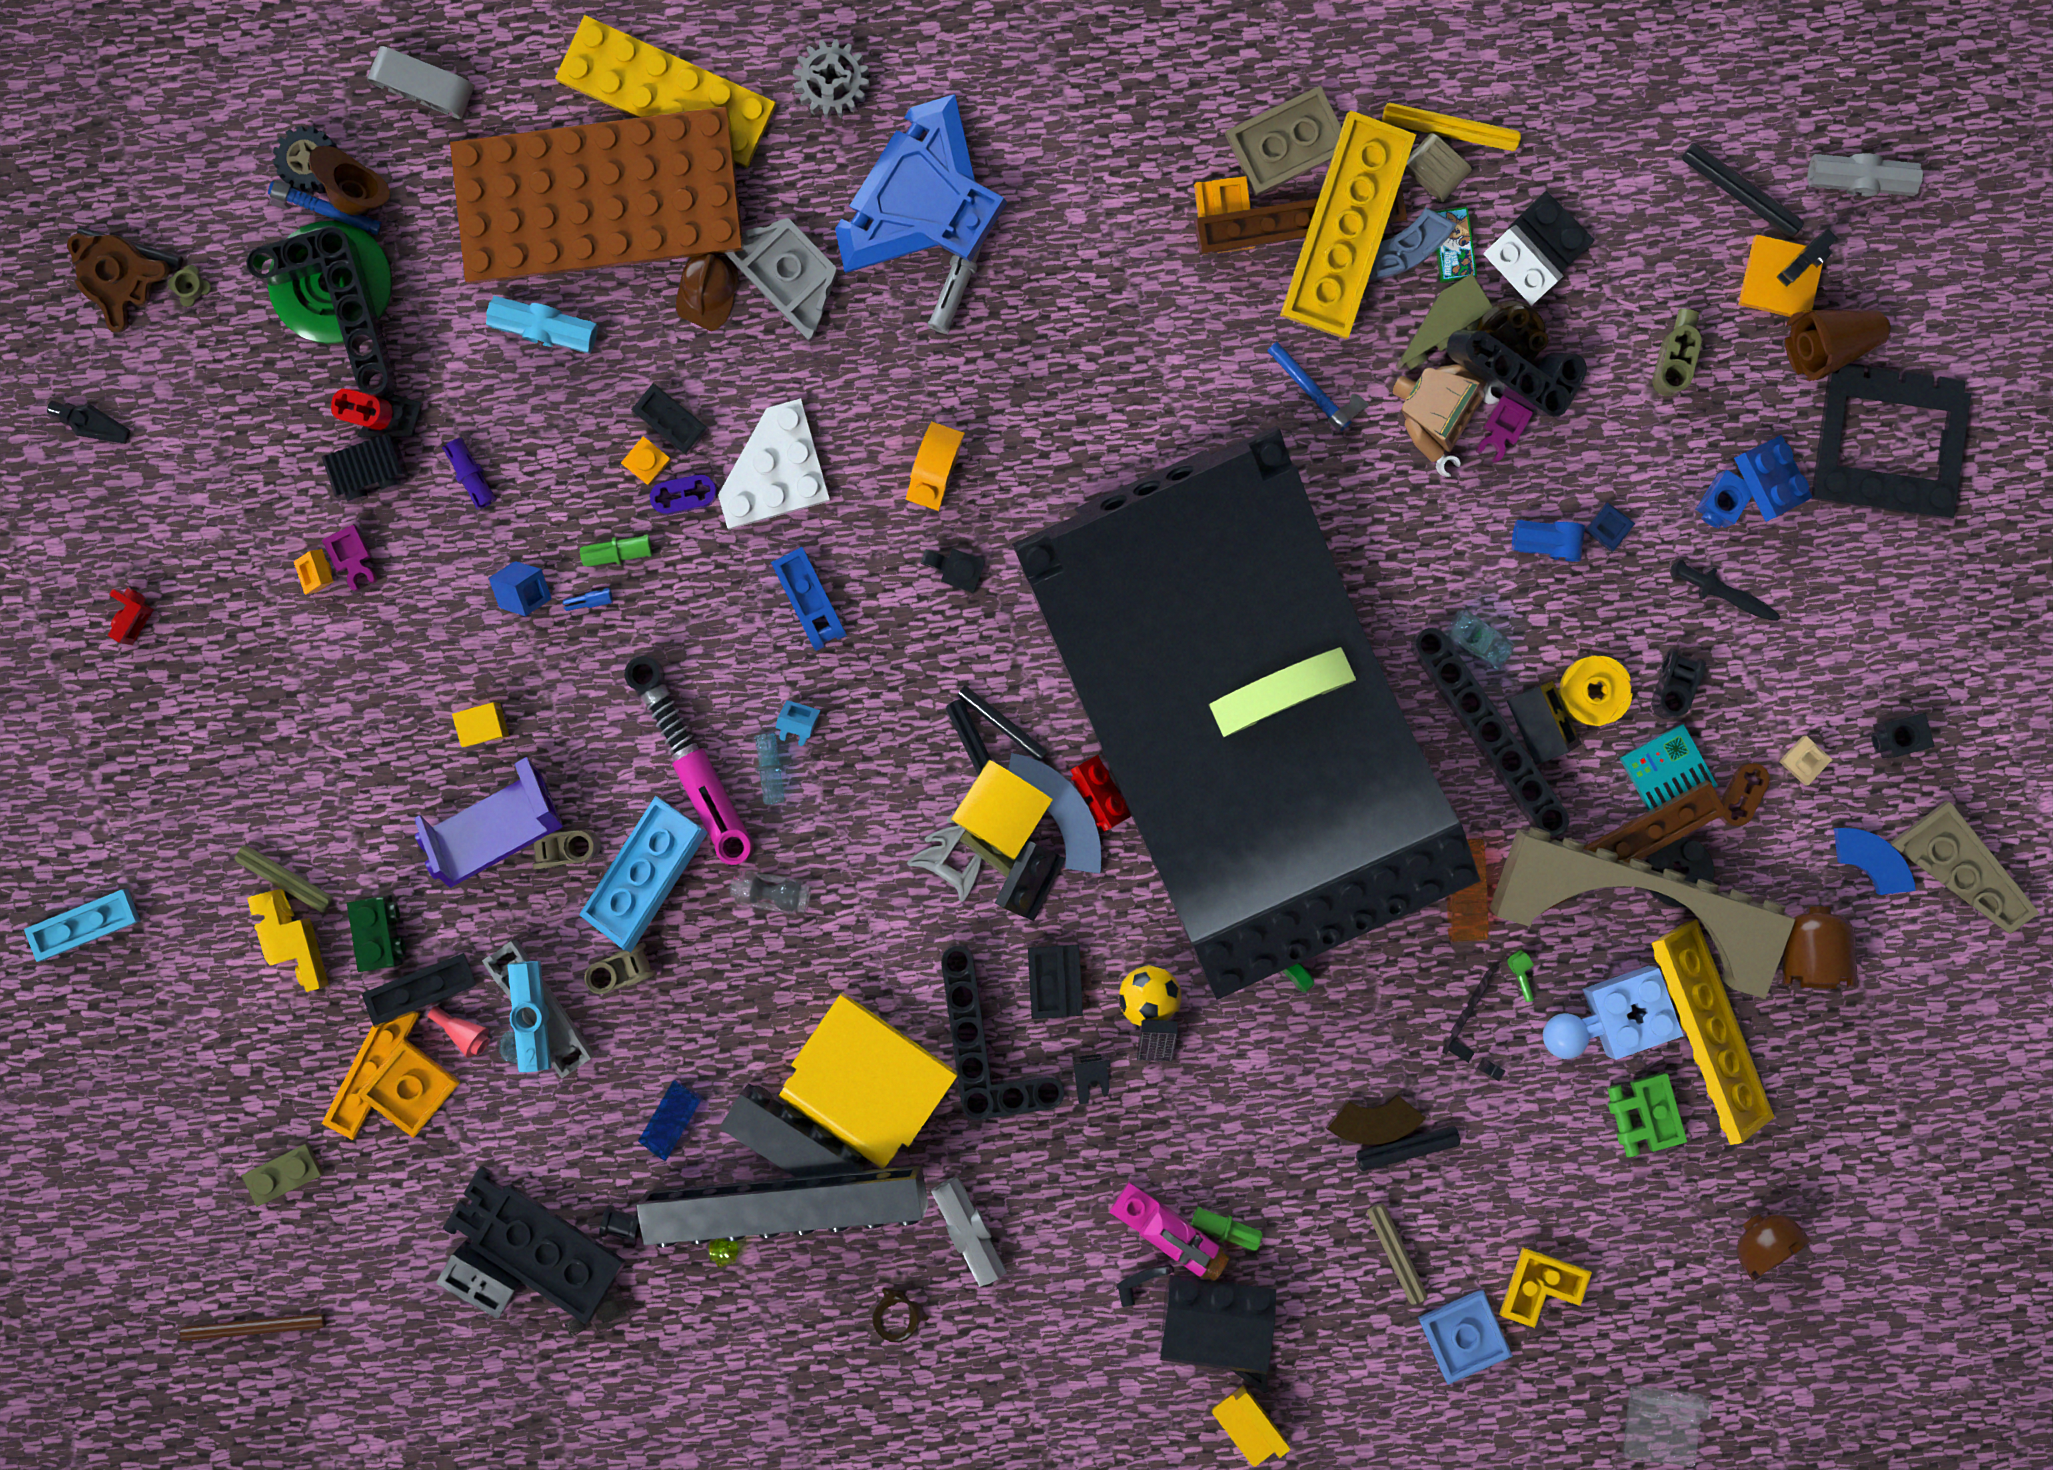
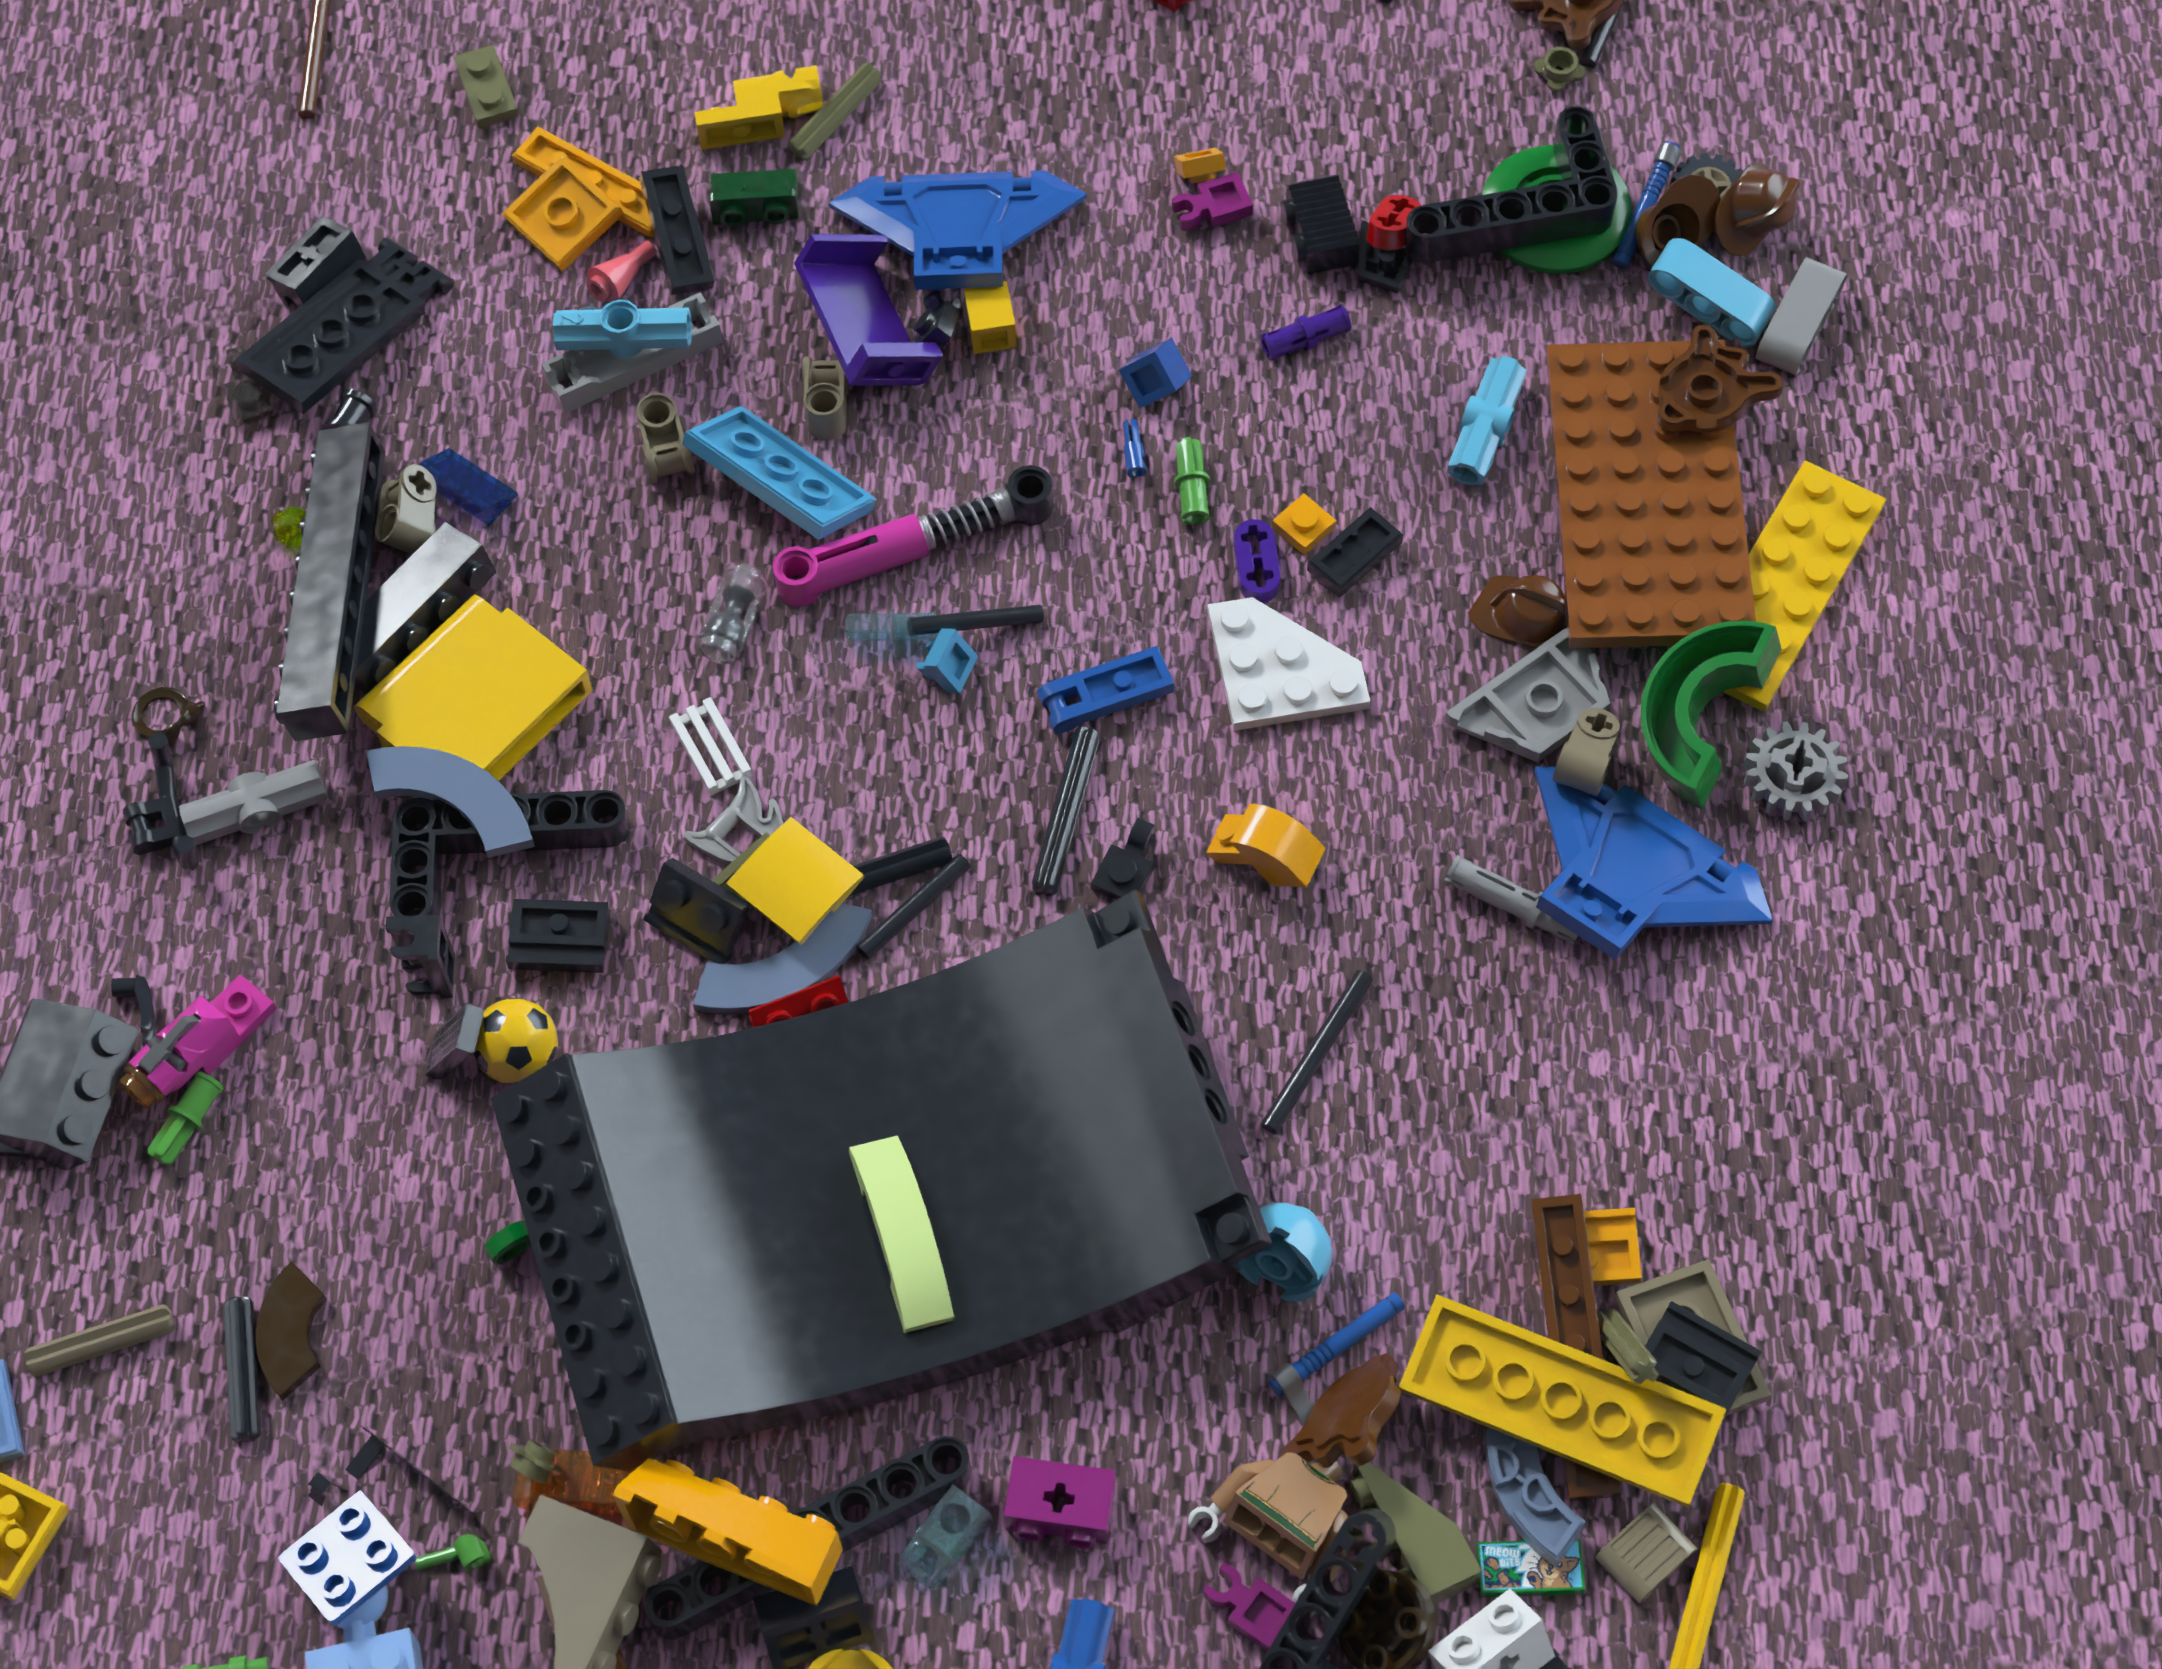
camera: 100 degrees right, 25 degrees down
(321, 118) = (1754, 207): none -> reddish brown piece
(387, 762) = (958, 220): none -> blue plate
(407, 152) = (1711, 292): none -> medium azure beam
(492, 764) = (938, 321): none -> black plate
(502, 150) = (1709, 386): none -> reddish brown tile
(710, 1161) = (406, 509): none -> dark tan piece
(760, 703) = (975, 619): none -> black bar
(784, 167) = (1682, 685): none -> green brick
(836, 230) = (1588, 752): none -> dark tan piece
(858, 910) = (694, 716): none -> white tile
(912, 618) = (1065, 811): none -> black axle
(952, 1073) = (458, 783): none -> sand blue tile
(977, 1294) = (166, 807): none -> black piece
(1088, 417) = (1316, 1052): none -> black bar
(1249, 416) = (1297, 1255): none -> medium azure cylinder
(1307, 133) = (1700, 1357): none -> black plate
(1308, 181) = (1626, 1346): none -> olive axle
(1370, 370) = (1350, 1415): none -> reddish brown tile
(1436, 547) = (1034, 1490): none -> magenta brick
(1470, 925) = (534, 1461): none -> olive plate
(1506, 780) = (729, 1528): none -> light orange wedge
(1550, 1042) = (347, 1558): none -> bracket

